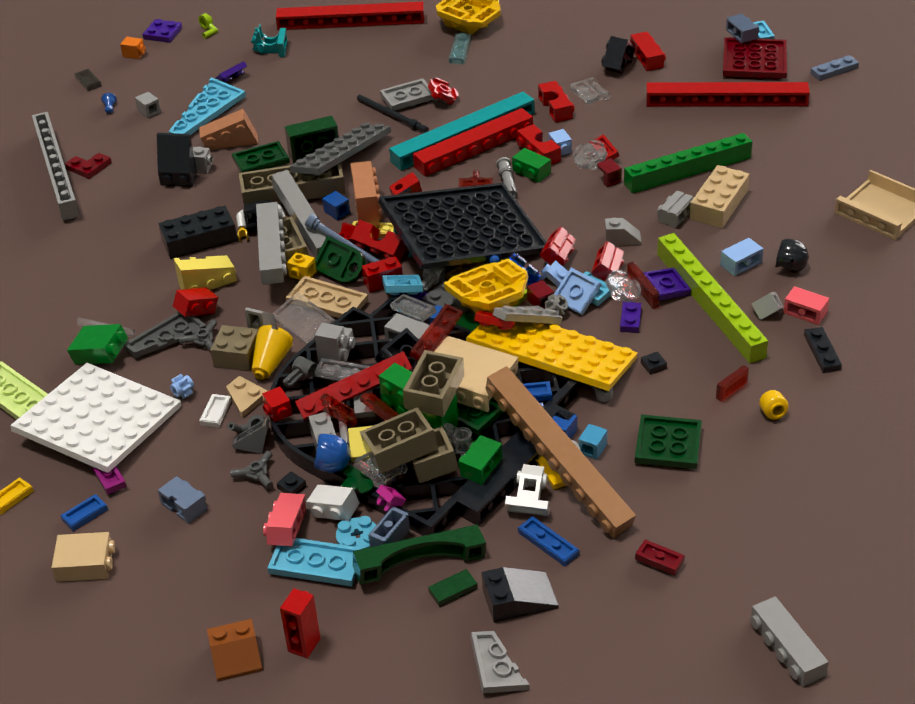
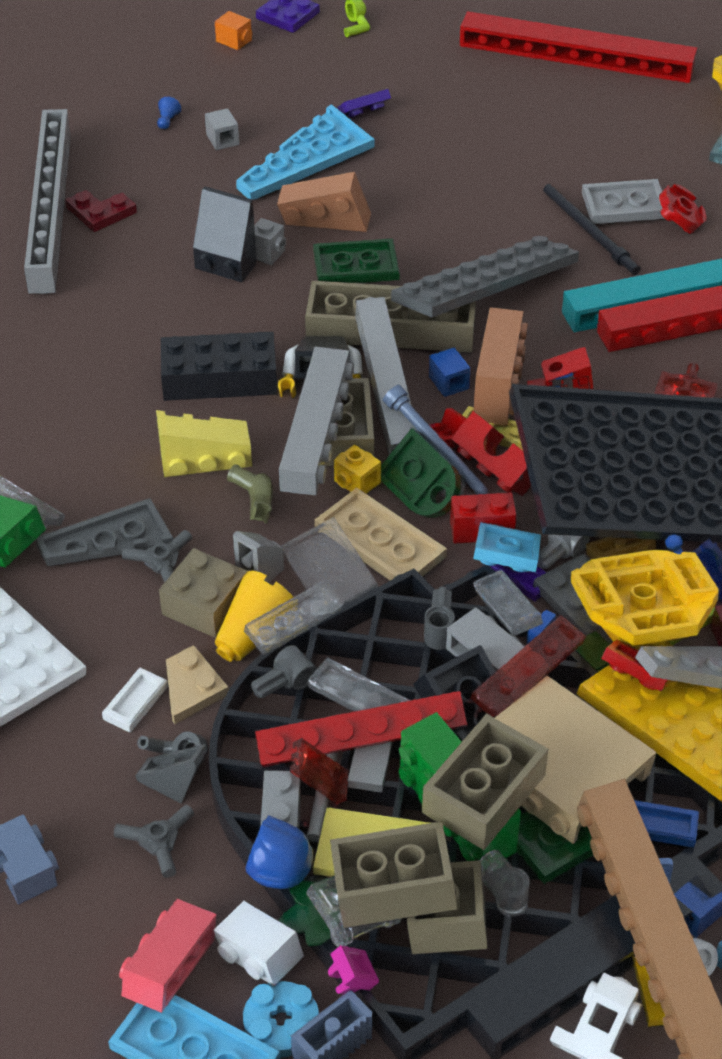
camera: 15 degrees right, 5 degrees up
(88, 80) = (151, 68): clear smoke tile -> none
(182, 386) = (96, 641): light blue gear -> none
(195, 301) = (169, 492): red brick -> none
(247, 289) = (259, 489): none -> olive arm
(270, 44) = (440, 69): teal tile -> none
(276, 404) = (225, 726): red brick -> none
(291, 483) = (206, 879): black plate -> none
(293, 345) = (292, 617): none -> clear plate
(310, 135) = (445, 243): dark green brick -> none
(334, 342) = (356, 635): light grey brick -> none
(377, 326) = (438, 618): none -> dark grey axle
(378, 406) = (391, 784): clear red tile -> none
(480, 459) = (531, 940): green brick -> none

